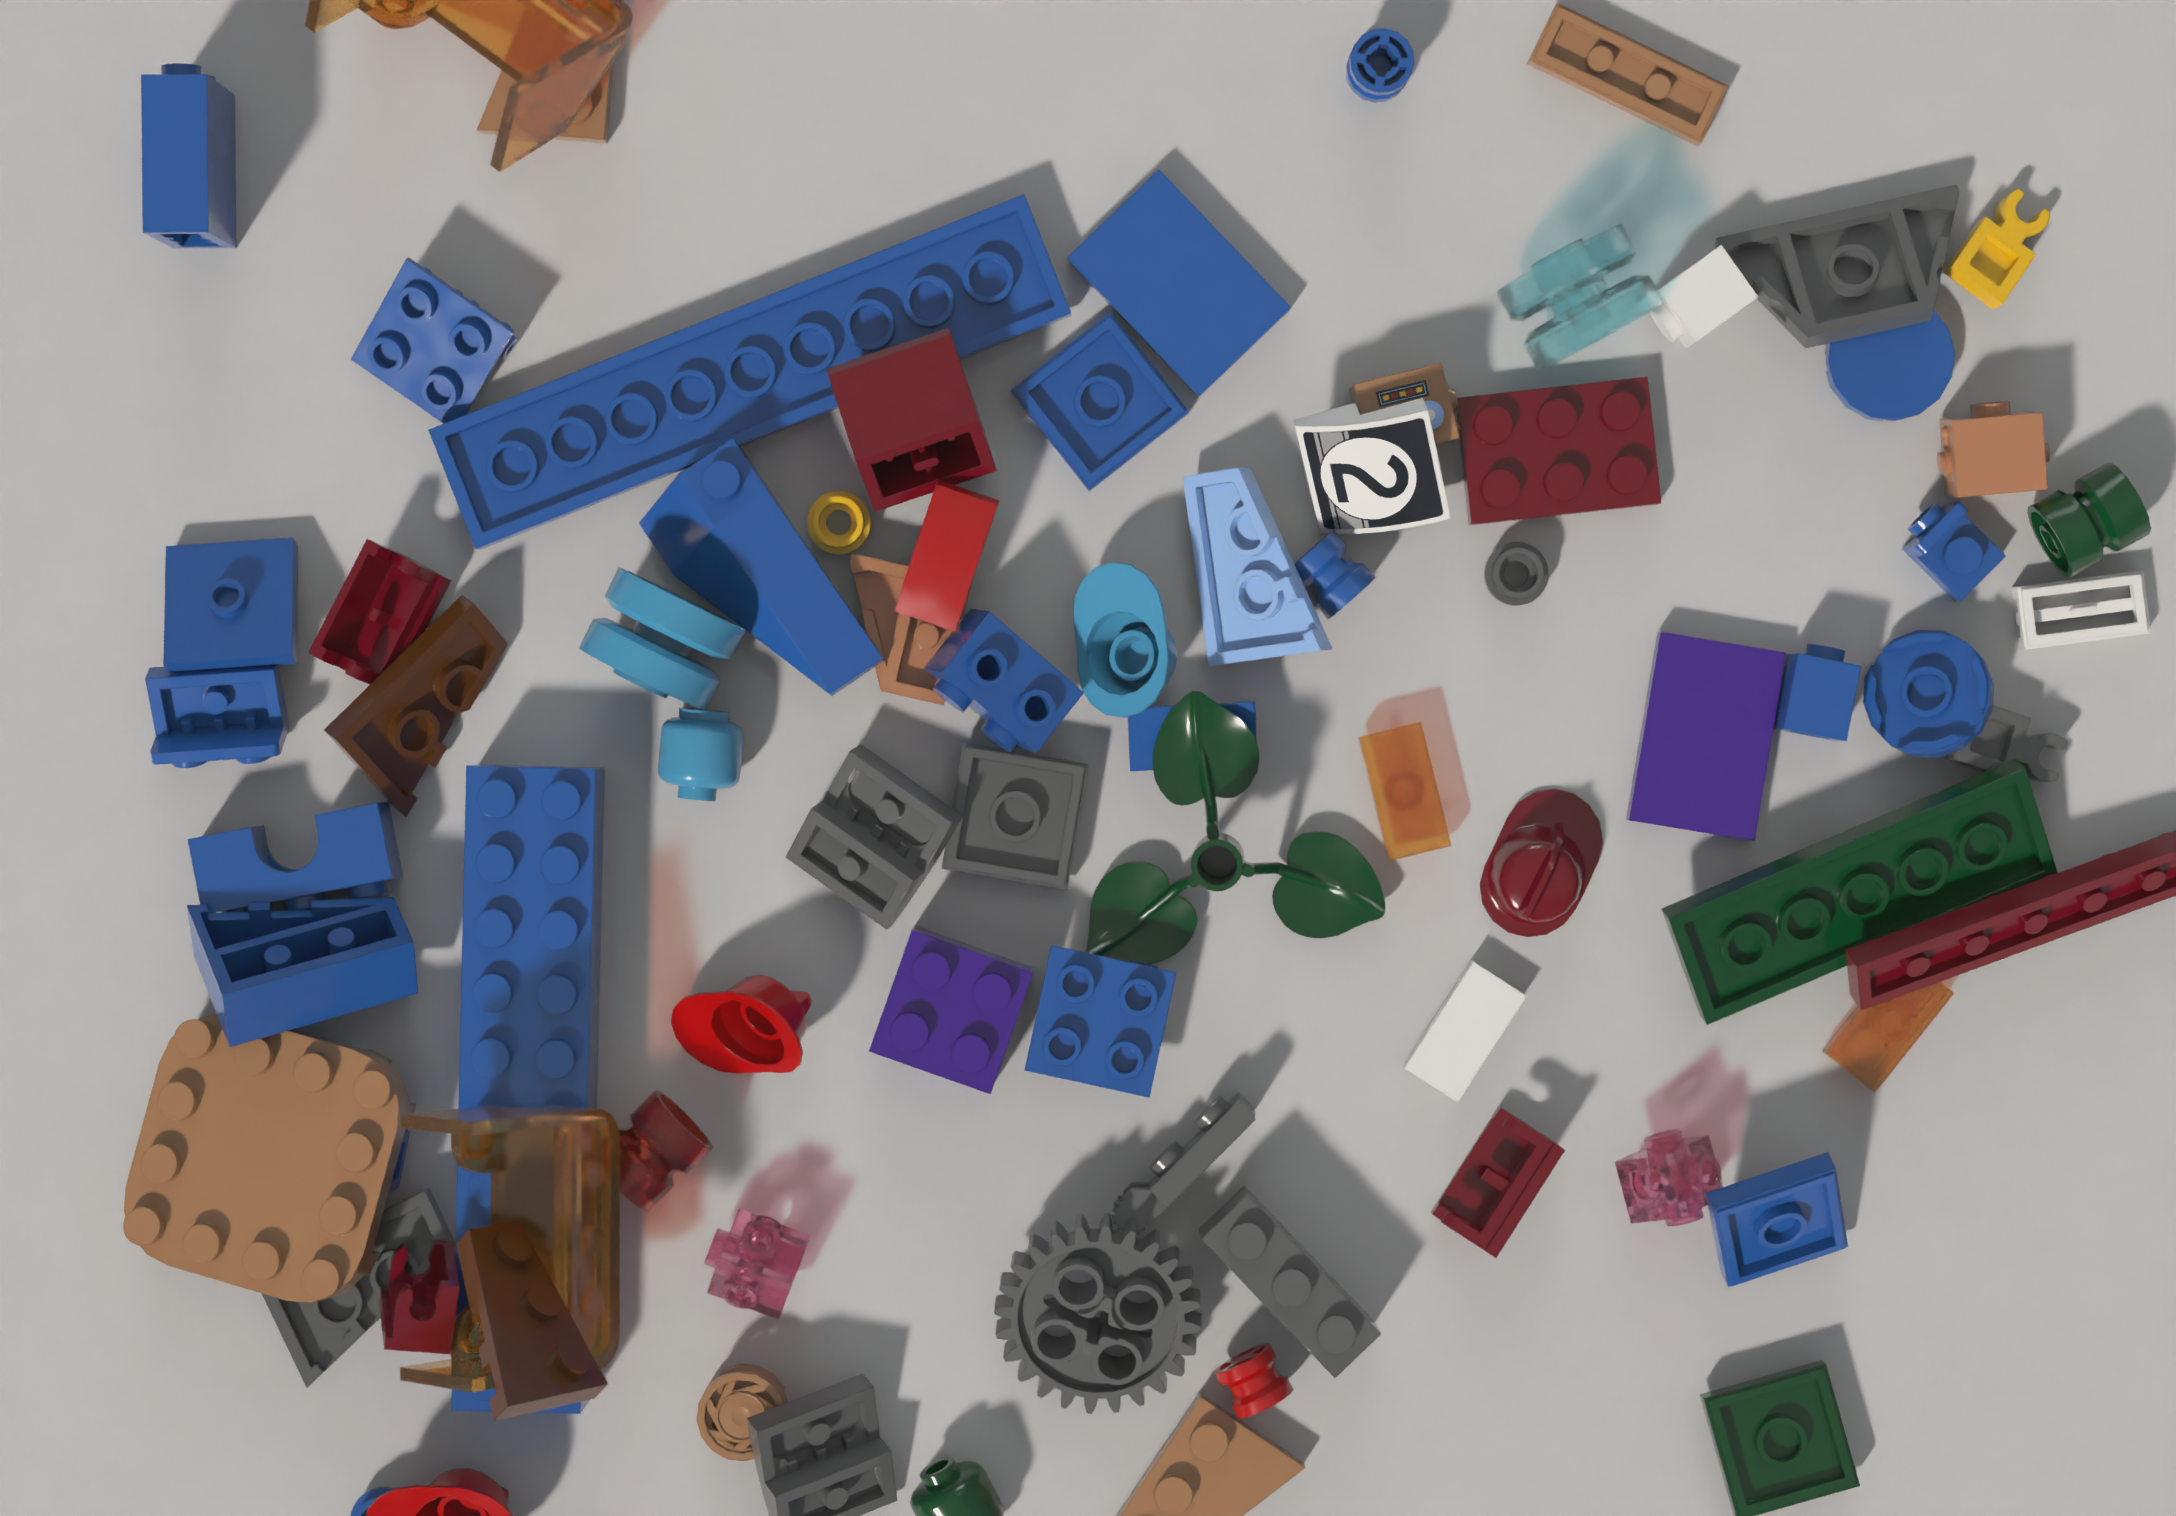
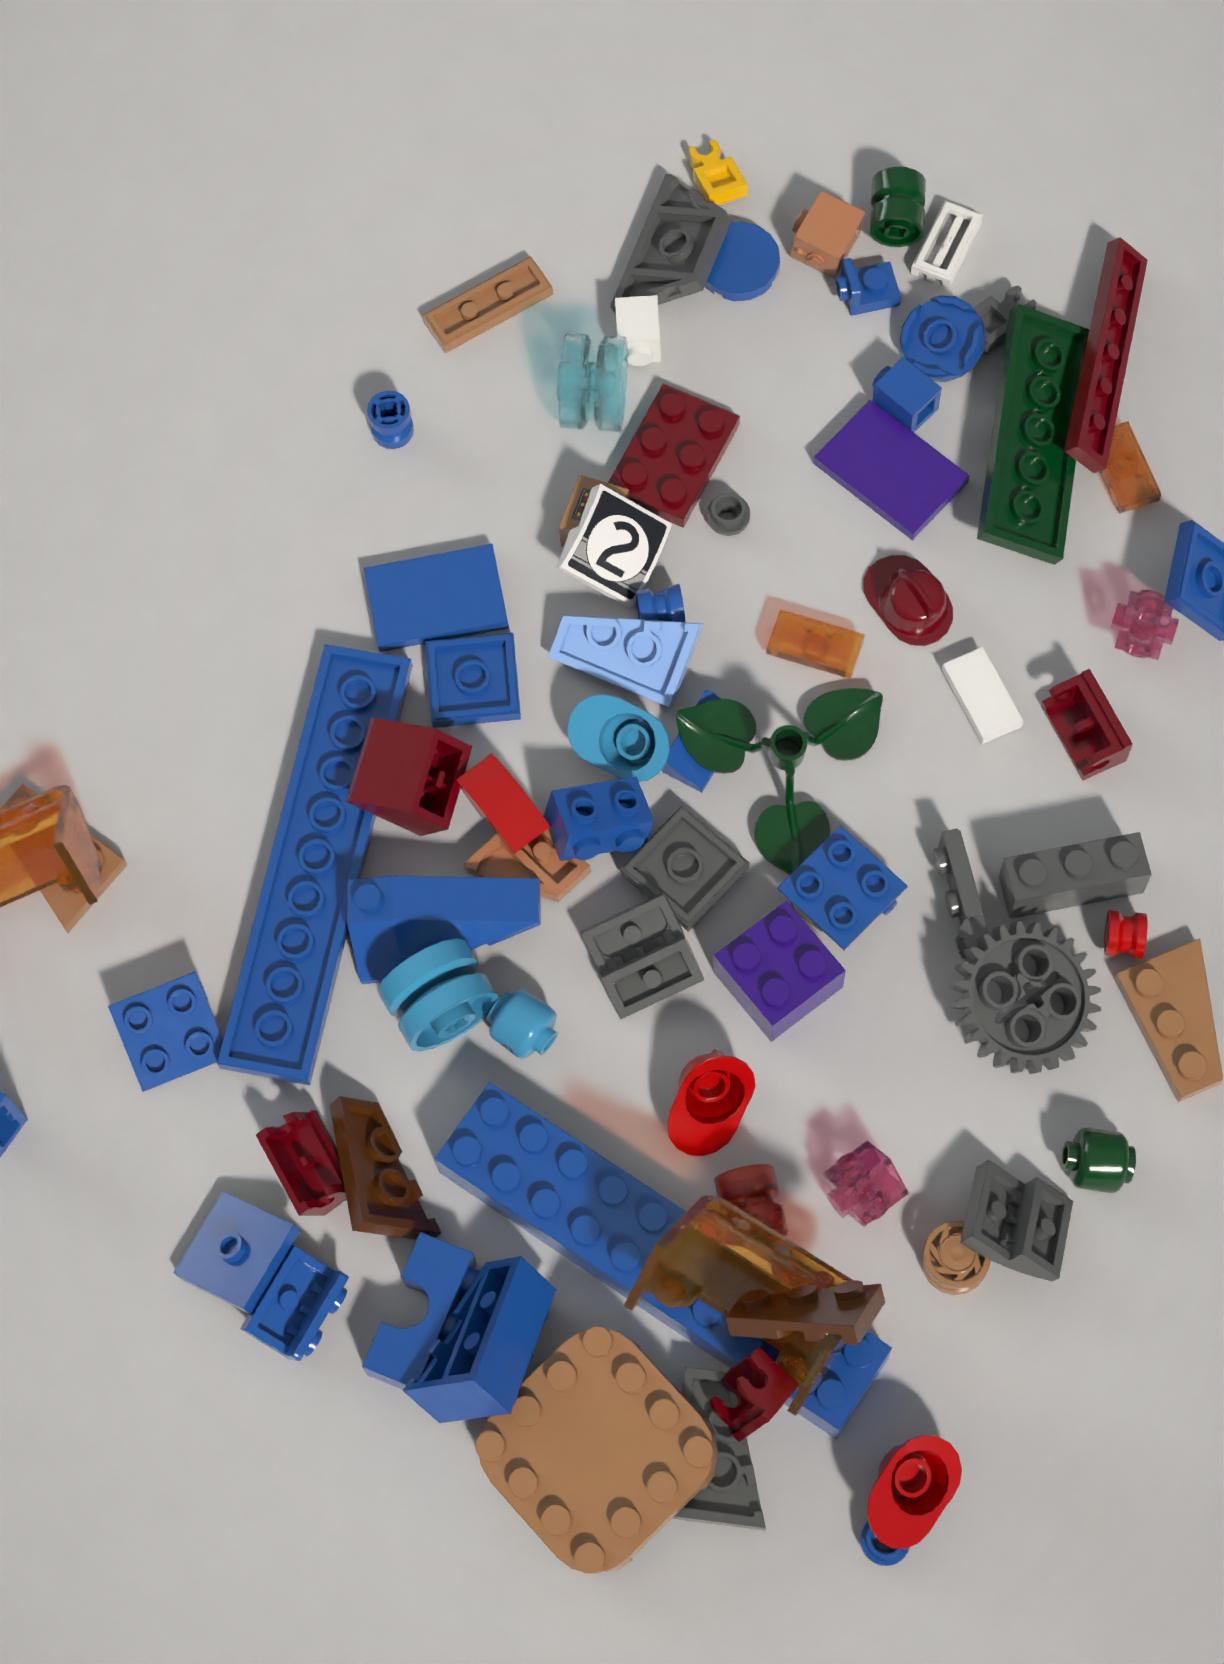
camera: 55 degrees left, 20 degrees down
(818, 519) = (440, 852): yellow plate -> none

